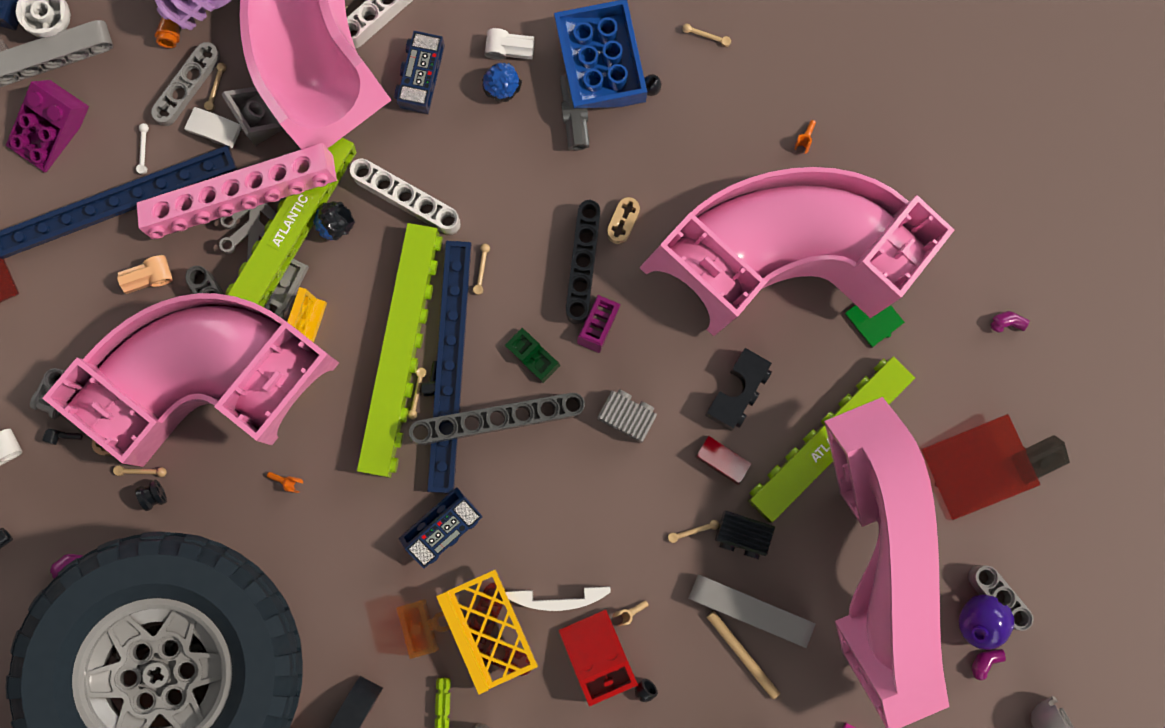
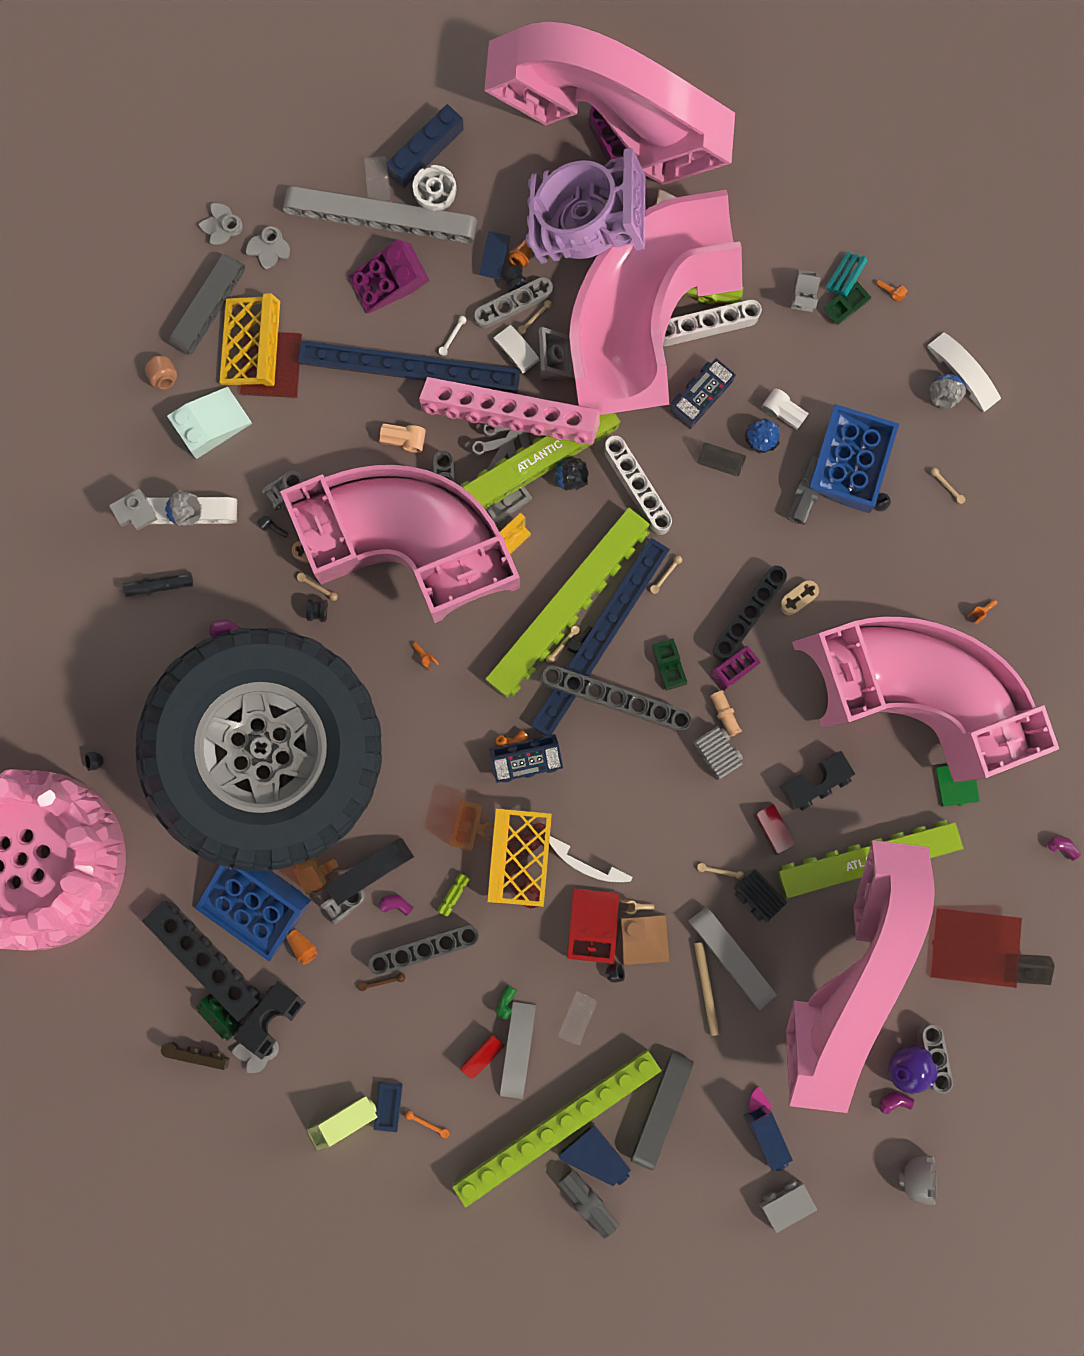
camera: 25 degrees right, 0 degrees up
(141, 47) = (494, 255): none -> dark blue slope
(172, 58) = (514, 277): none -> black wheel
(424, 508) = (520, 736): none -> orange arm
(473, 127) = (721, 459): none -> clear smoke slope
(613, 373) = (725, 713): none -> light nougat pin
(656, 641) = (644, 940): none -> medium nougat slope

